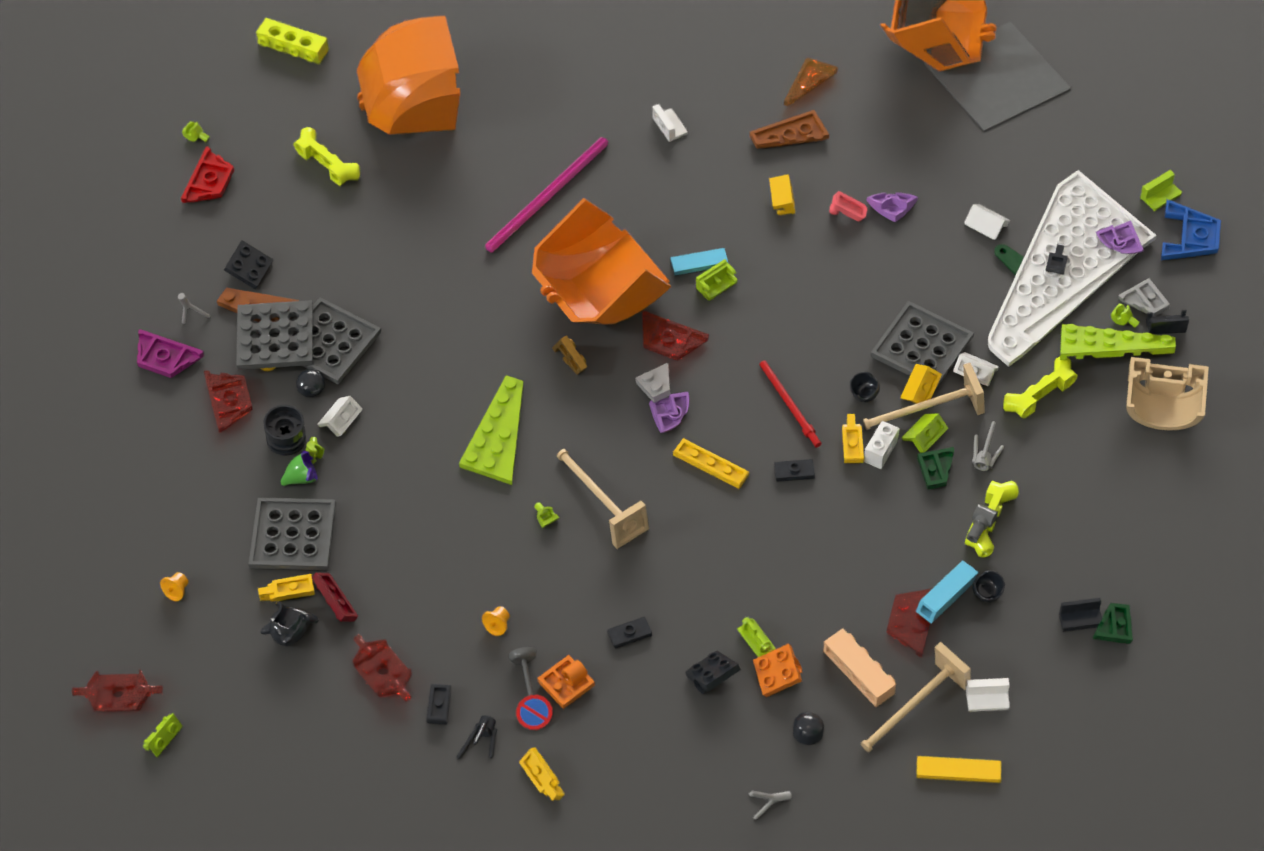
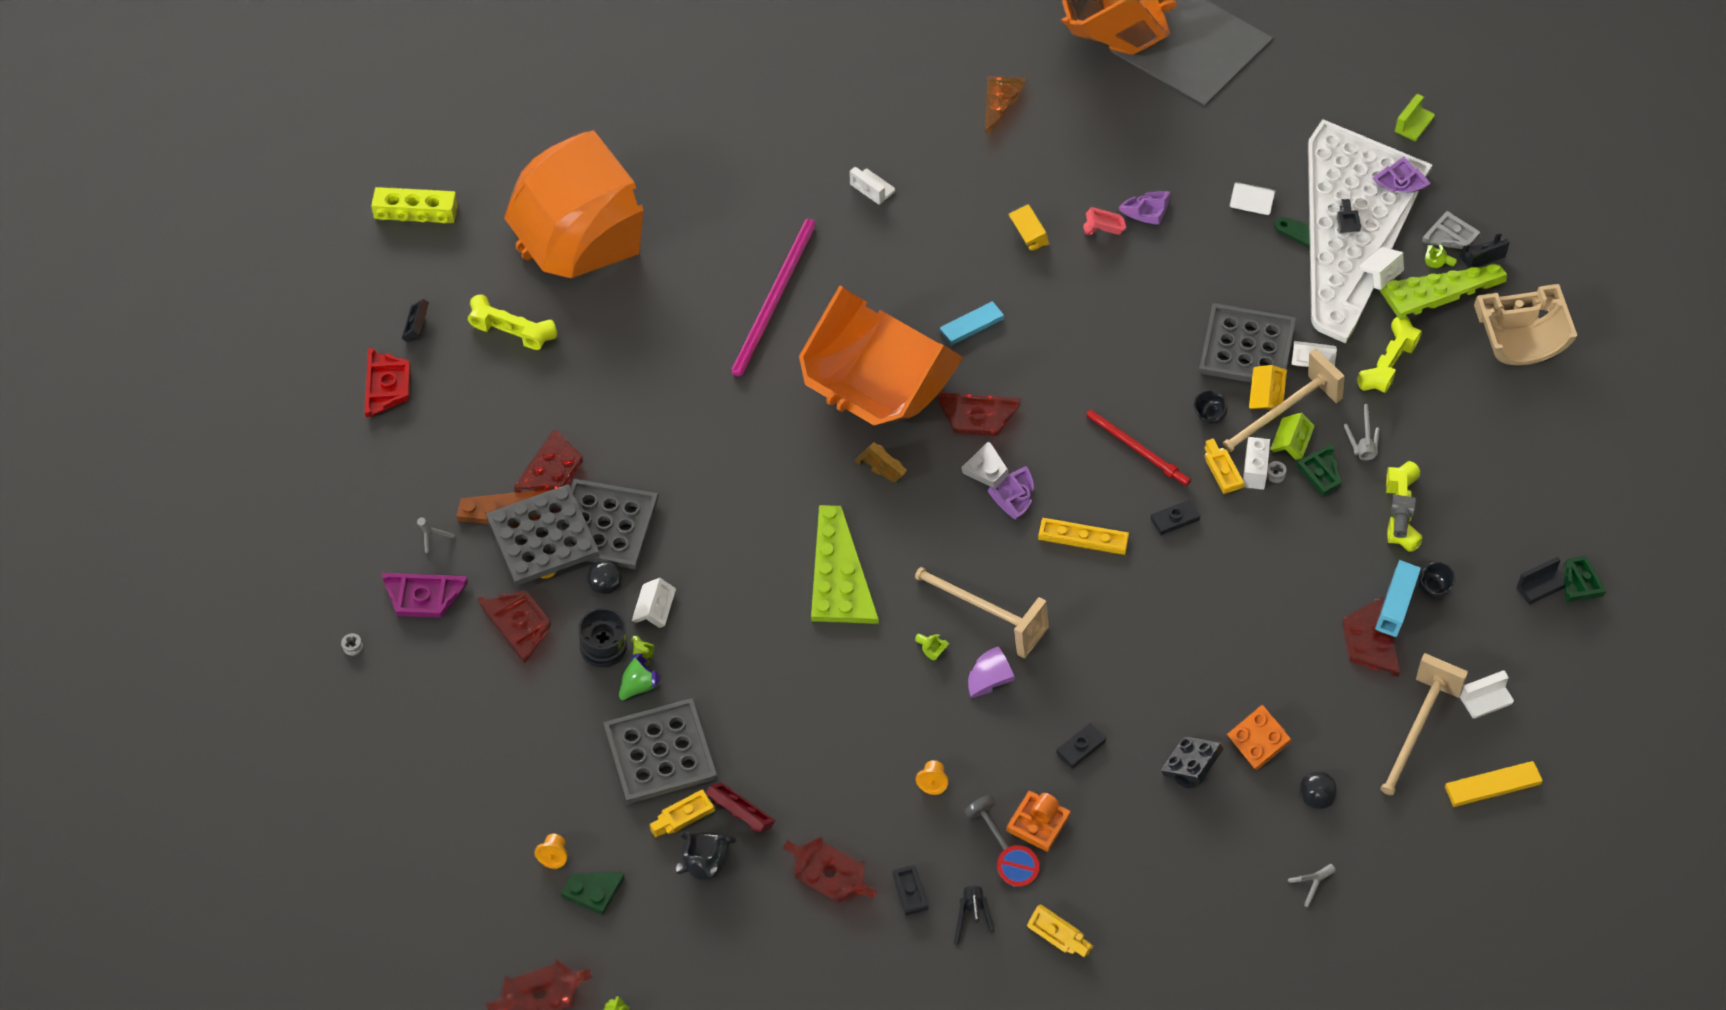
camera: 20 degrees left, 0 degrees up
(97, 383) = (352, 651): none -> light grey bush
(194, 131) = (346, 335): lime piece -> none
(194, 626) = (592, 889): none -> dark green wing
(248, 264) = (475, 465): black plate -> none
(252, 135) = (415, 320): none -> black plate
(307, 282) = (551, 466): none -> clear red wing
(581, 551) = (989, 671): none -> medium lavender brick
(716, 280) = (1000, 338): lime hinge -> none
(755, 637) = (1218, 709): lime hinge -> none
(794, 130) = (1006, 158): dark orange wing -> none
(859, 667) = (1343, 707): light nougat brick -> none
(899, 462) = (1276, 478): none -> light grey bush
(1070, 310) = (1384, 265): none -> white panel
(1199, 233) = (1472, 150): blue wing -> none

